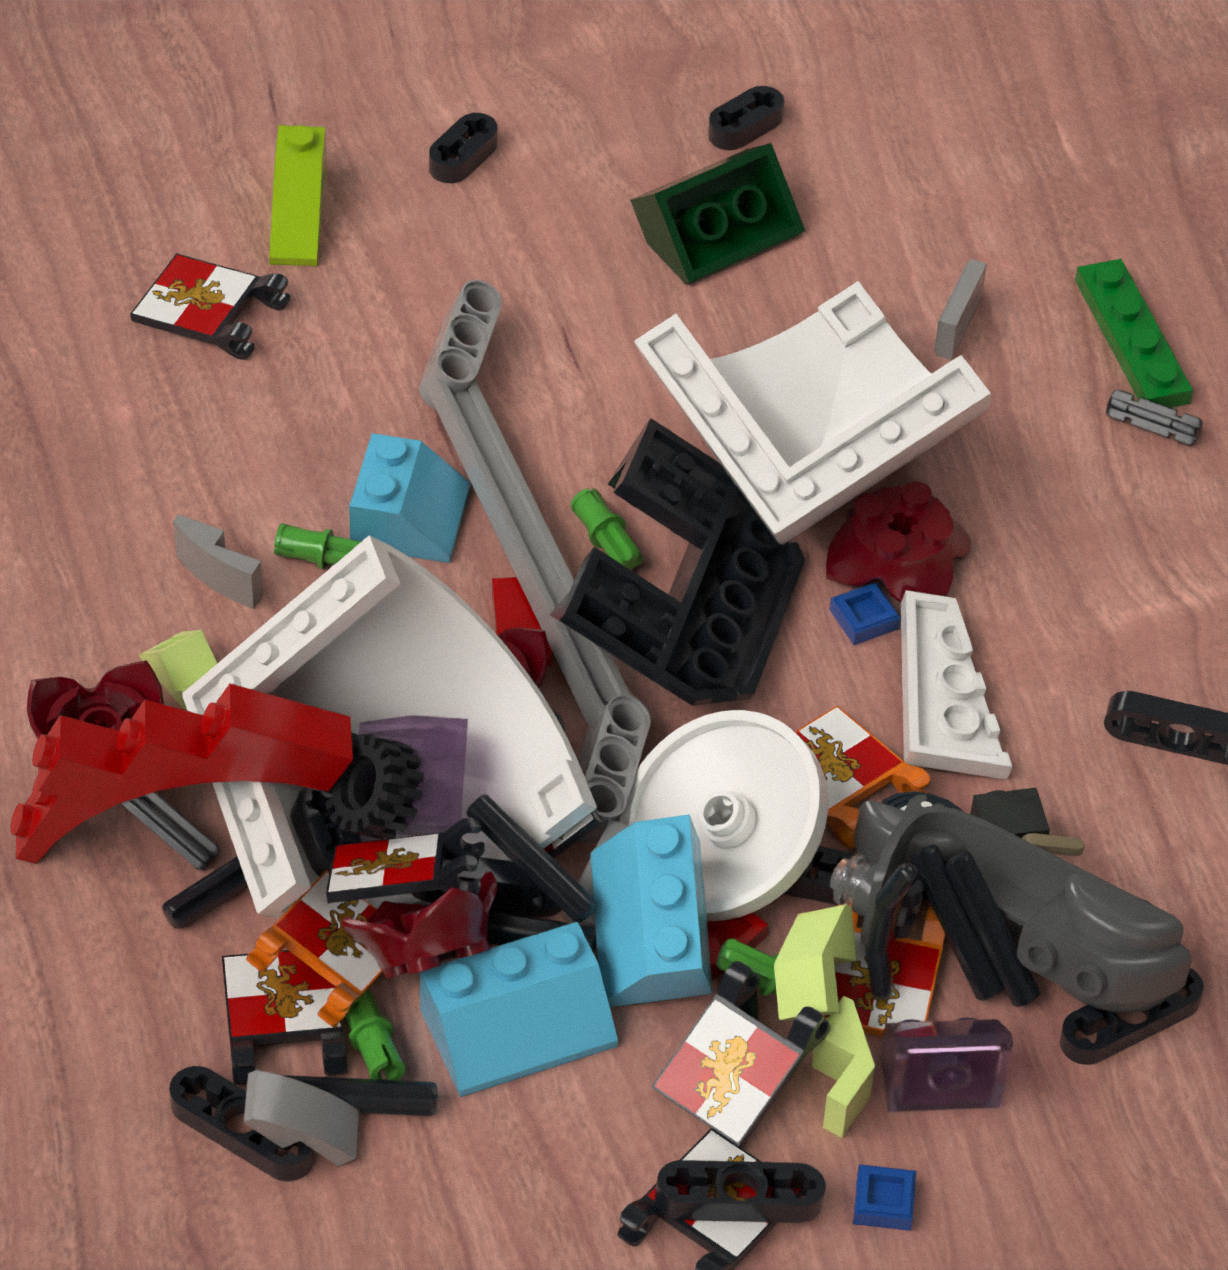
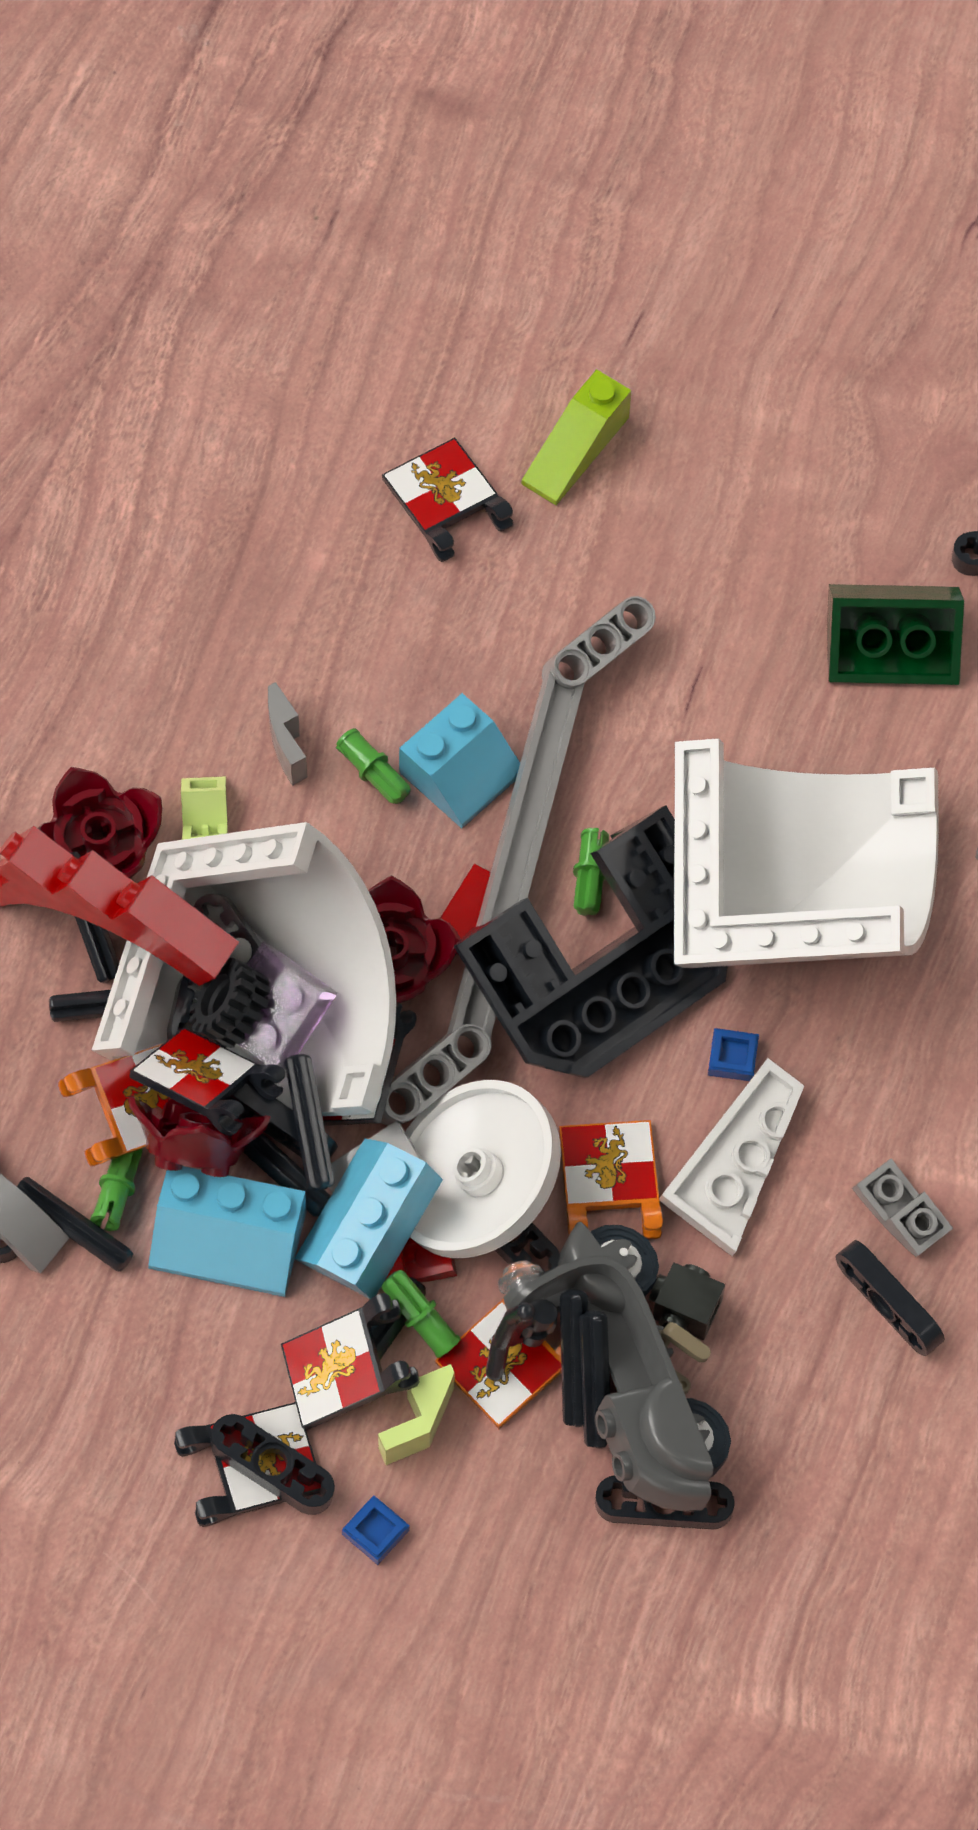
camera: 35 degrees right, 15 degrees up
(278, 1009) = (65, 1128): flag -> none
(456, 143) = (744, 458): black beam -> none
(808, 958) = (462, 1311): yellowish green slope -> none
(898, 538) = (795, 1039): dark red brick -> none
(945, 1064) = (488, 1456): slope -> none
(1136, 659) = (900, 1208): none -> light grey slope

